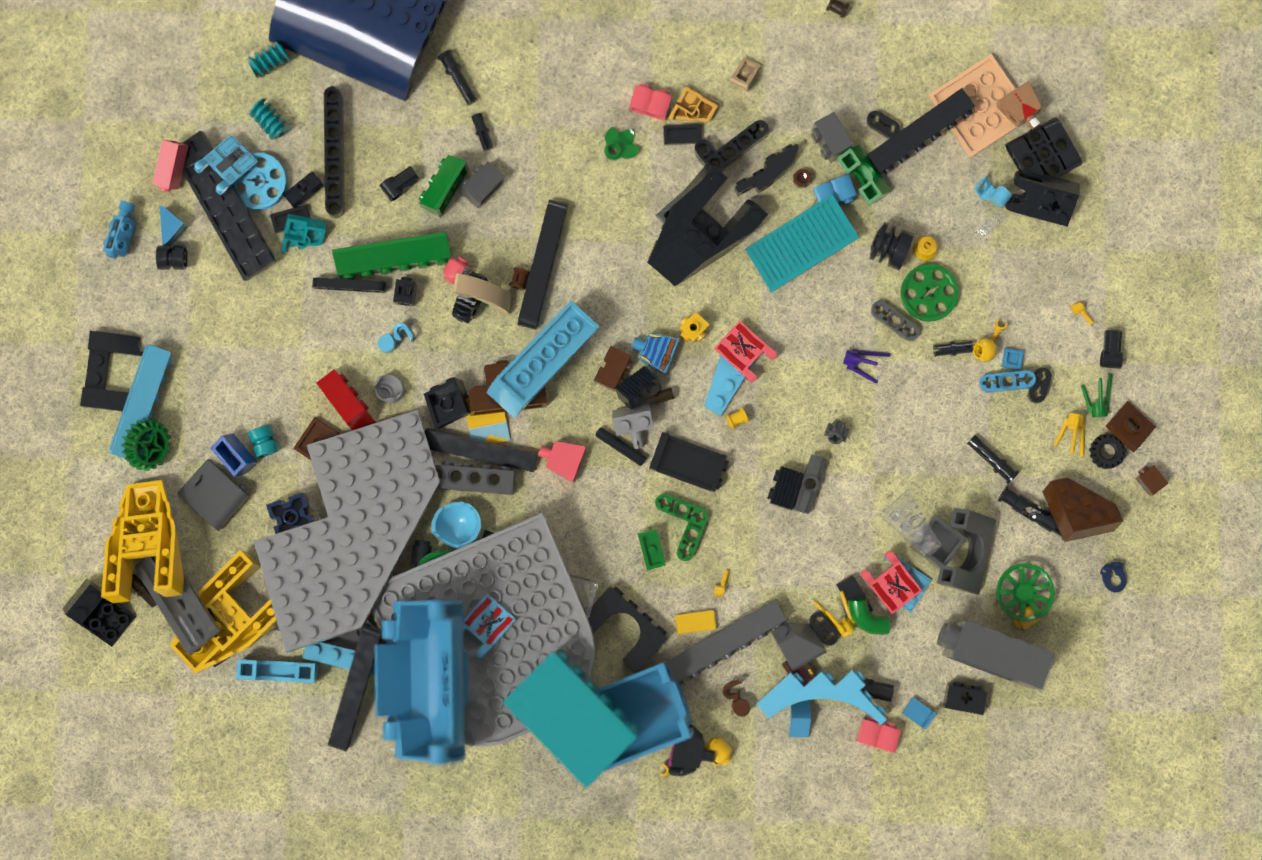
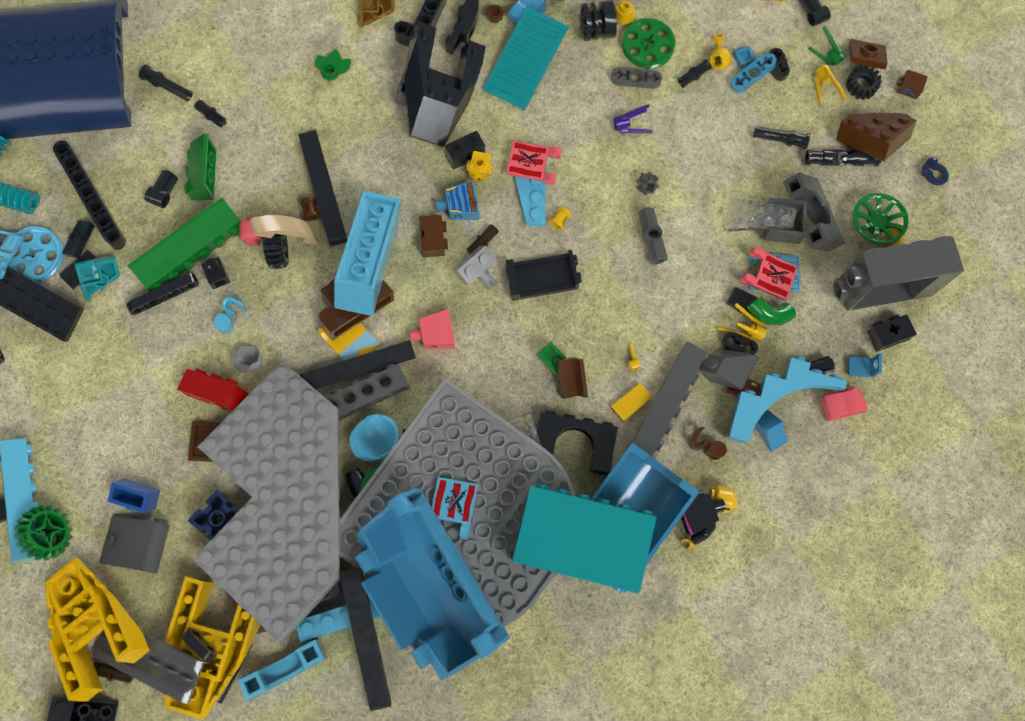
camera: 40 degrees left, 10 degrees down
(222, 614) = (199, 645): none -> black beam
(263, 441) = (155, 467): teal wheel -> none
(447, 402) = (305, 340): black plate -> none
(482, 184) = (234, 151): dark grey brick -> none
(620, 446) = (477, 295): black axle -> none
(638, 387) = (463, 237): black brick -> none
(650, 102) = (338, 20): coral brick -> none
(654, 571) = (571, 377): none -> reddish brown panel
(682, 134) = (378, 32): black tile -> none
(690, 302) = (462, 149): none -> black brick
(692, 523) = (576, 323): green beam -> none
(785, 488) = (635, 250): black brick -> none

